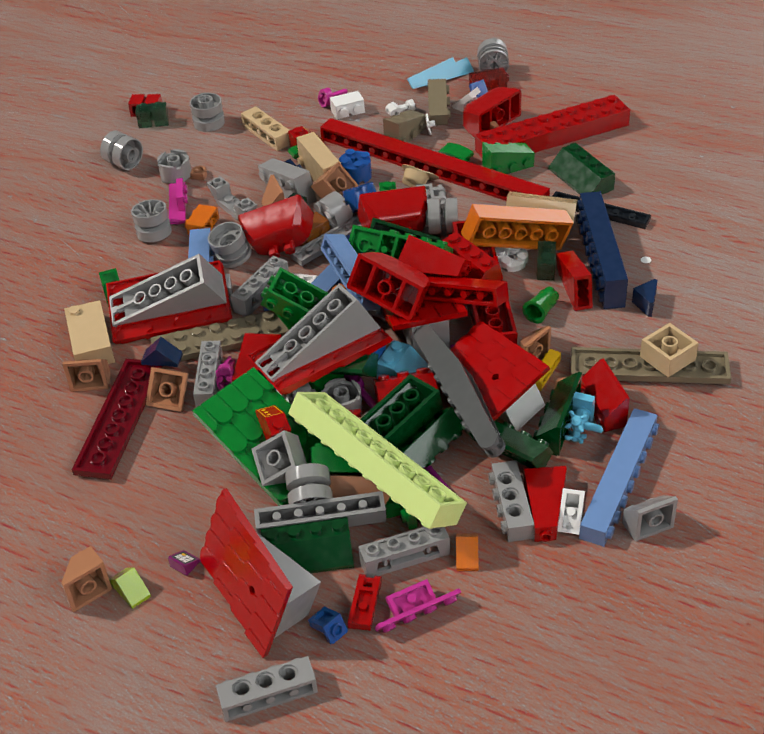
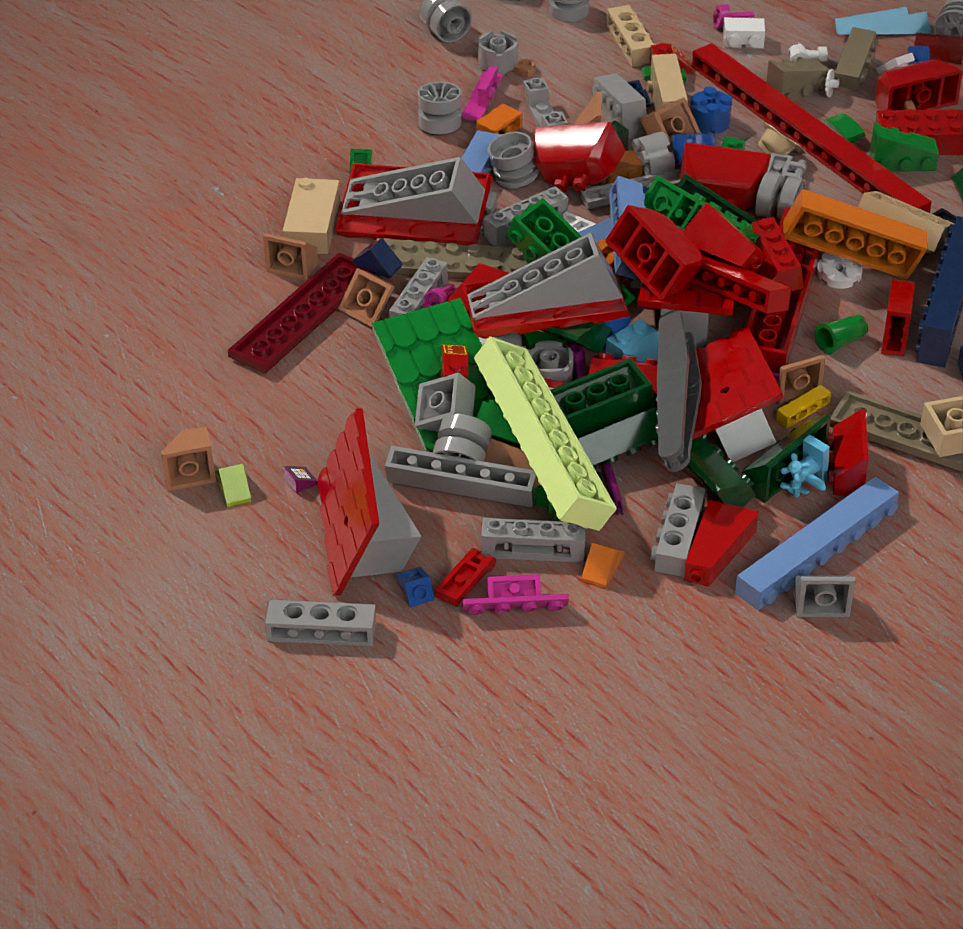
camera: 20 degrees right, 0 degrees up
(315, 545) = (440, 504): dark green slope -> none
(546, 260) = (876, 285): clear green piece -> none
(571, 511) = (738, 557): white slope -> none

